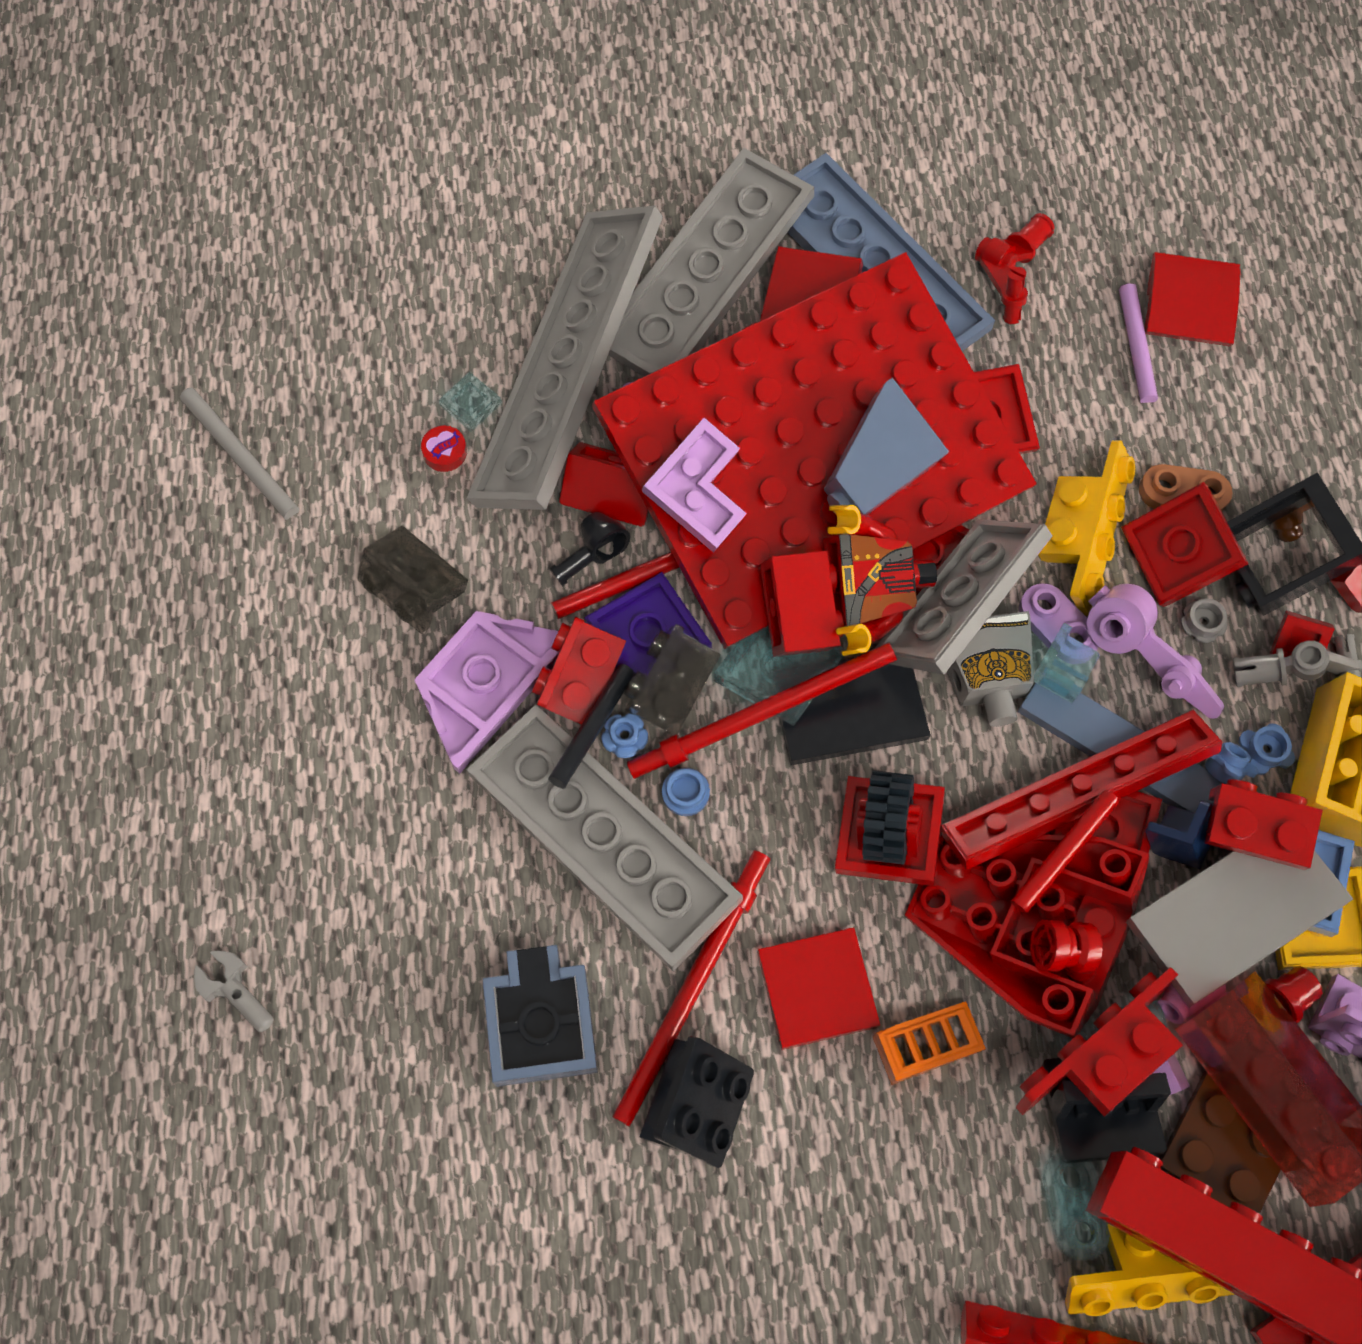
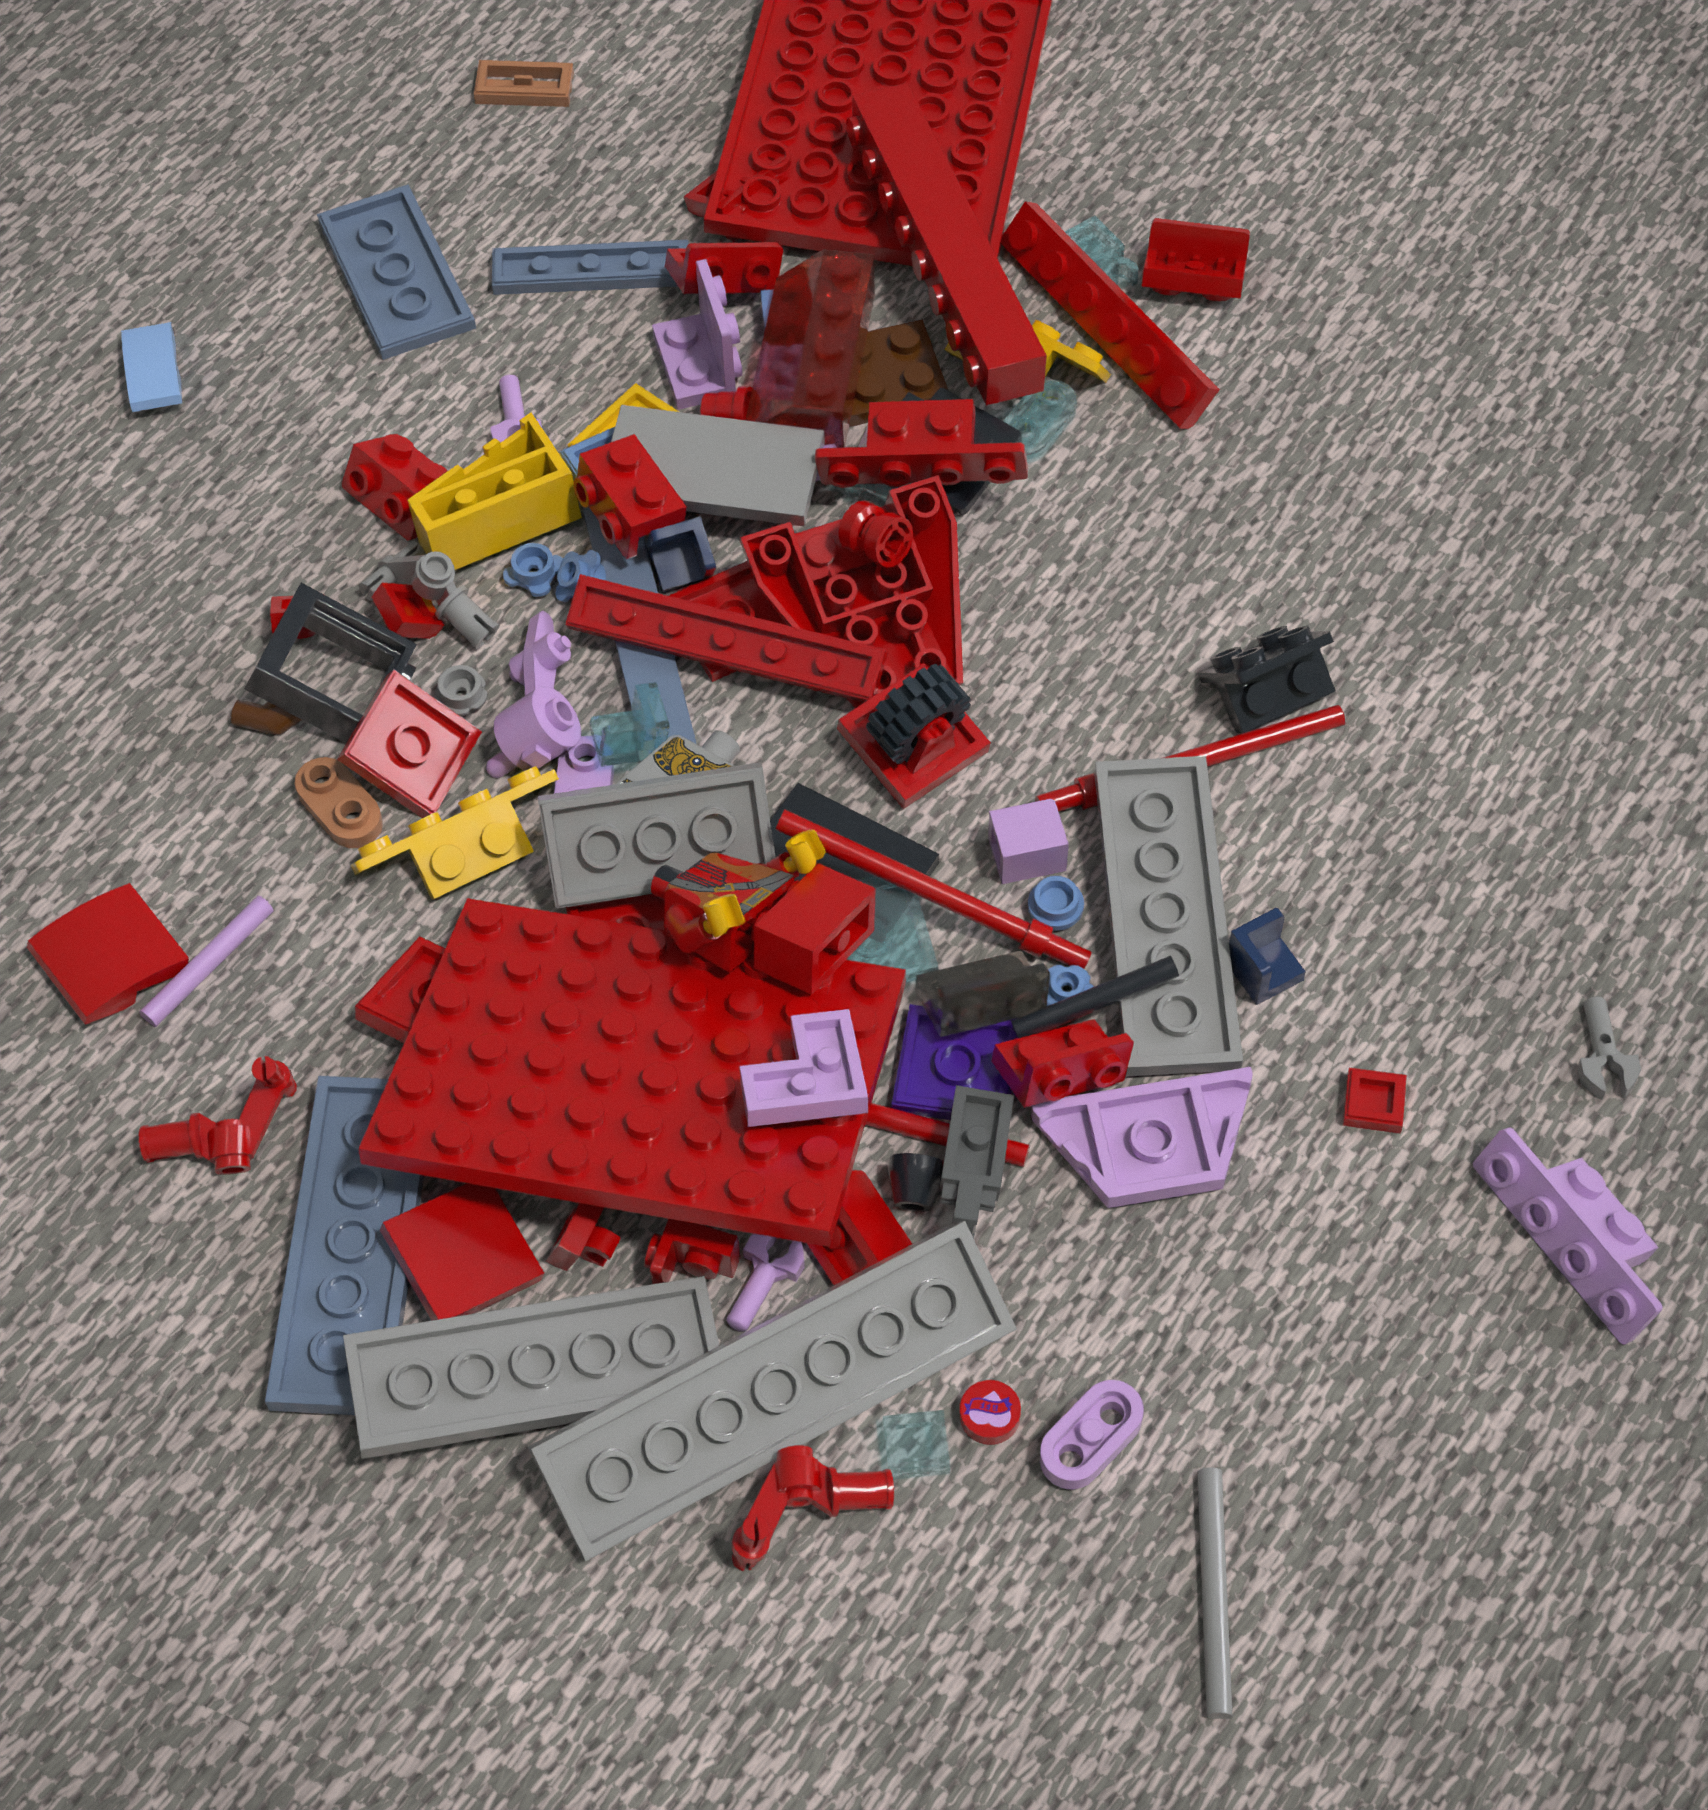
camera: 135 degrees left, 10 degrees down
(164, 839) = (1577, 1228): none -> lavender bracket
(365, 824) = (1374, 1100): none -> red tile
(373, 478) = (1089, 1436): none -> lavender plate
(409, 577) = (1142, 1290): clear smoke bracket -> none
(511, 324) = (797, 1482): none -> red pin
(511, 857) = (1262, 958): none -> dark blue panel
(539, 1019) = (1347, 819): piece -> none
(575, 562) = (975, 1152): none -> dark grey hinge
(741, 809) = (1028, 841): none -> lavender panel
(818, 988) = (1089, 684): red tile -> none
(884, 453) = (608, 979): sand blue slope -> none
(891, 1055) = (1047, 604): orange slope -> none
(1065, 851) = (798, 595): red bar -> none

